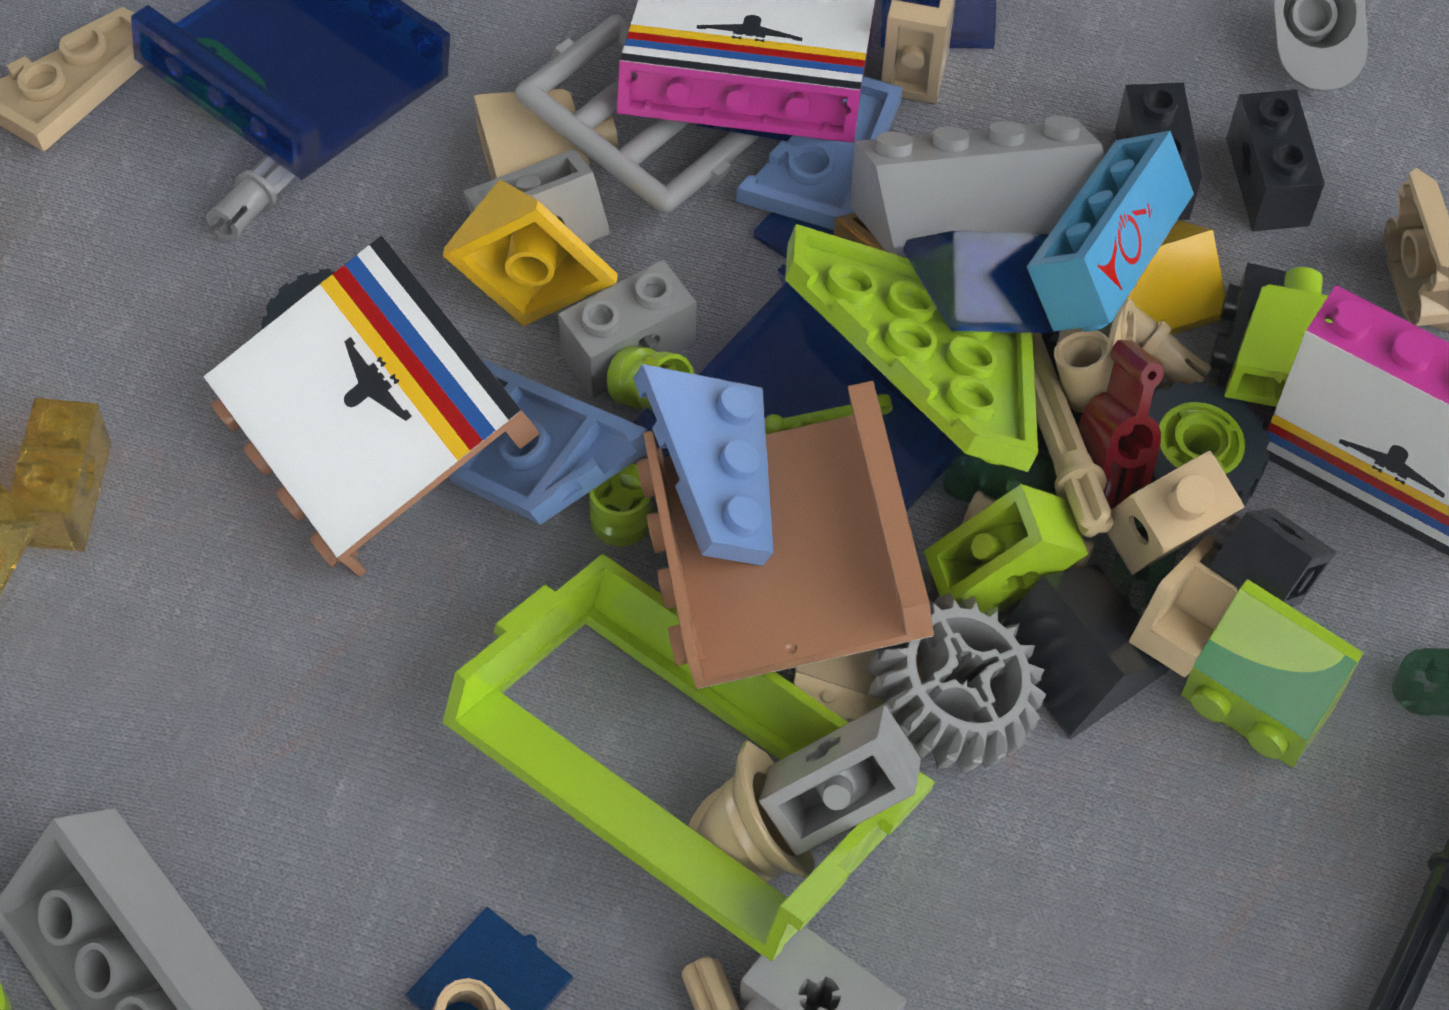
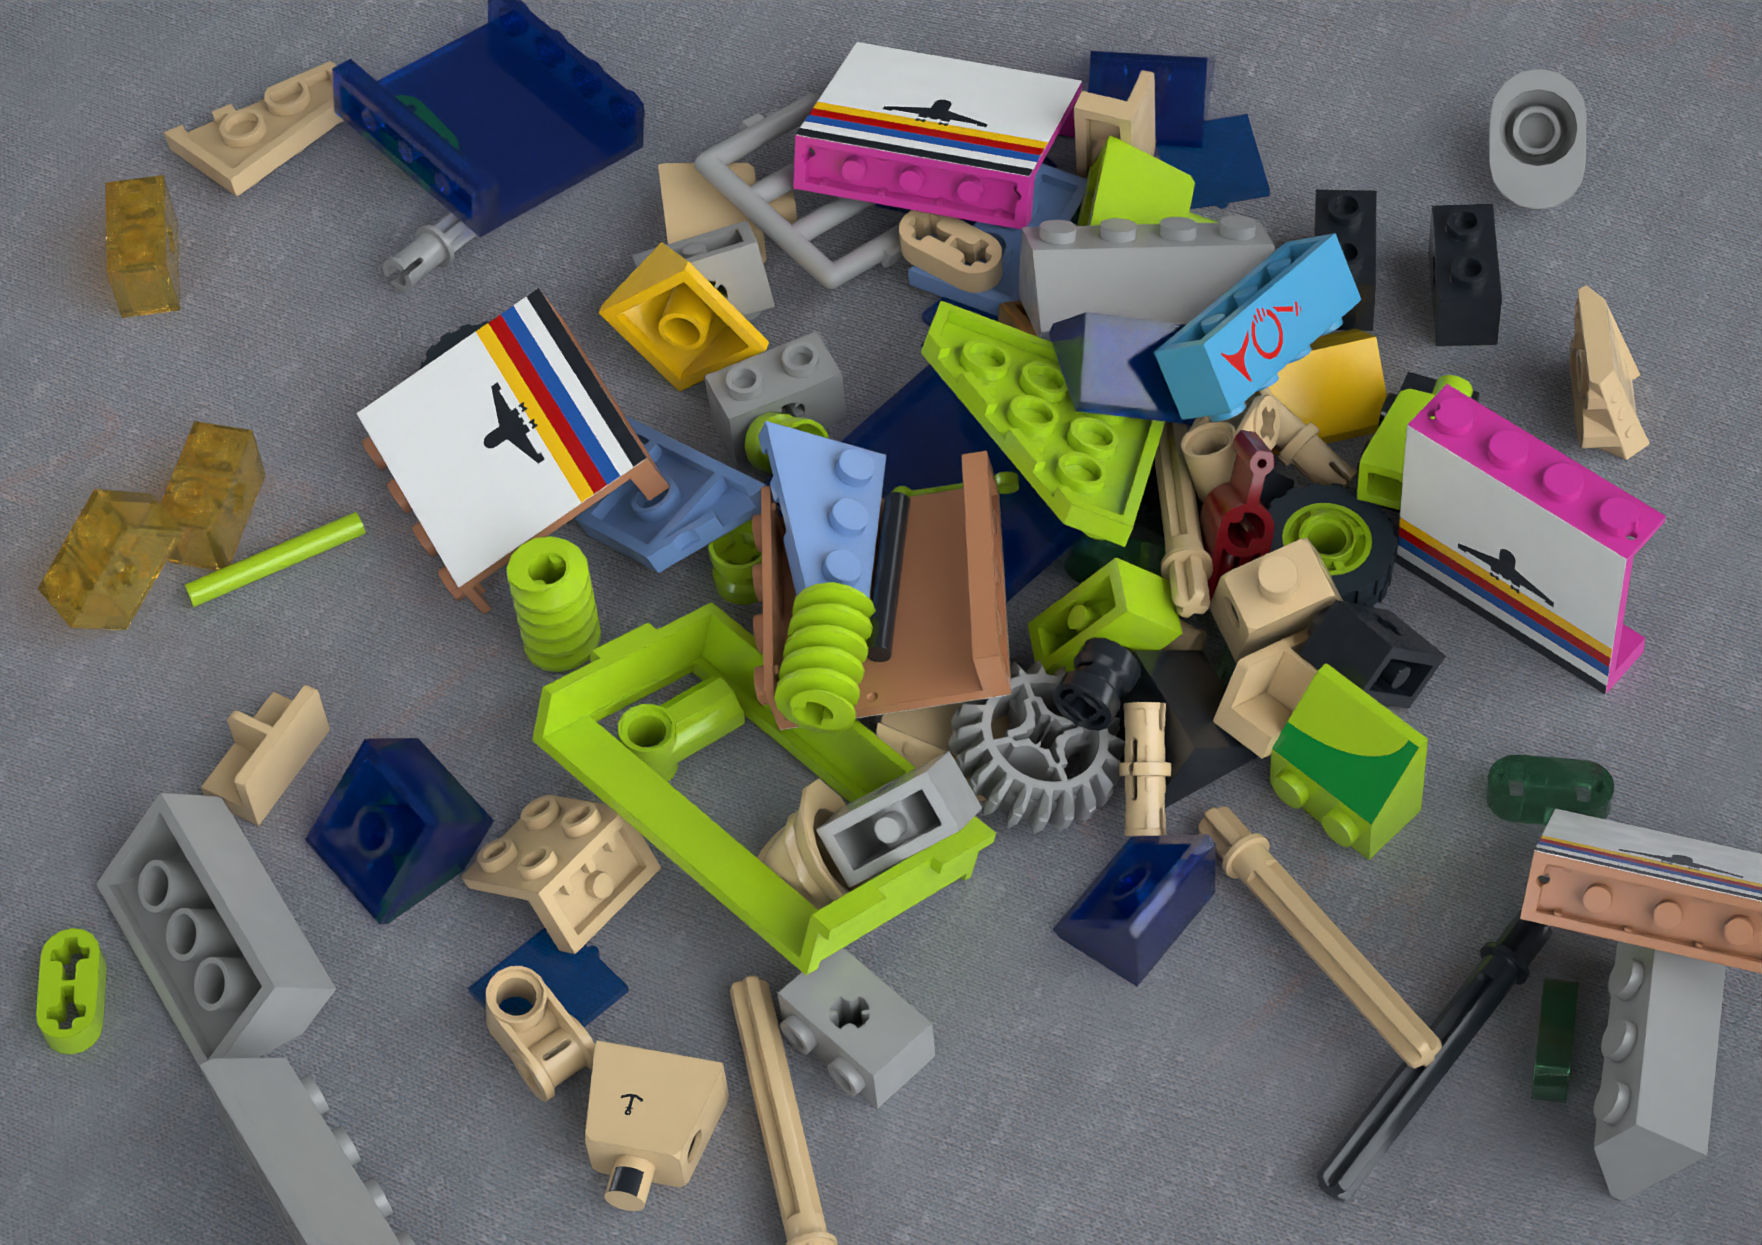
camera: 15 degrees right, 5 degrees down
(133, 535) = (274, 559): none -> lime bar
(154, 752) = (267, 753): none -> tan panel
(306, 823) = (397, 826): none -> clear blue slope
(440, 567) = (554, 603): none -> lime piece
(492, 848) = (570, 863): none -> tan bracket
(588, 684) = (681, 725): none -> lime piece
(742, 614) = (824, 657): none -> lime piece
(778, 166) = (947, 254): none -> tan beam
(786, 519) = (888, 575): none -> black bar
(947, 91) = (1135, 188): none -> lime torso
(1013, 69) = (1224, 167): none -> clear blue piece
(1014, 623) = (1093, 689): none -> black wheel
(1071, 699) = (1144, 769): none -> tan pin
(1081, 835) = (1142, 902): none -> clear blue slope
(1273, 862) = (1249, 859): none -> tan axle

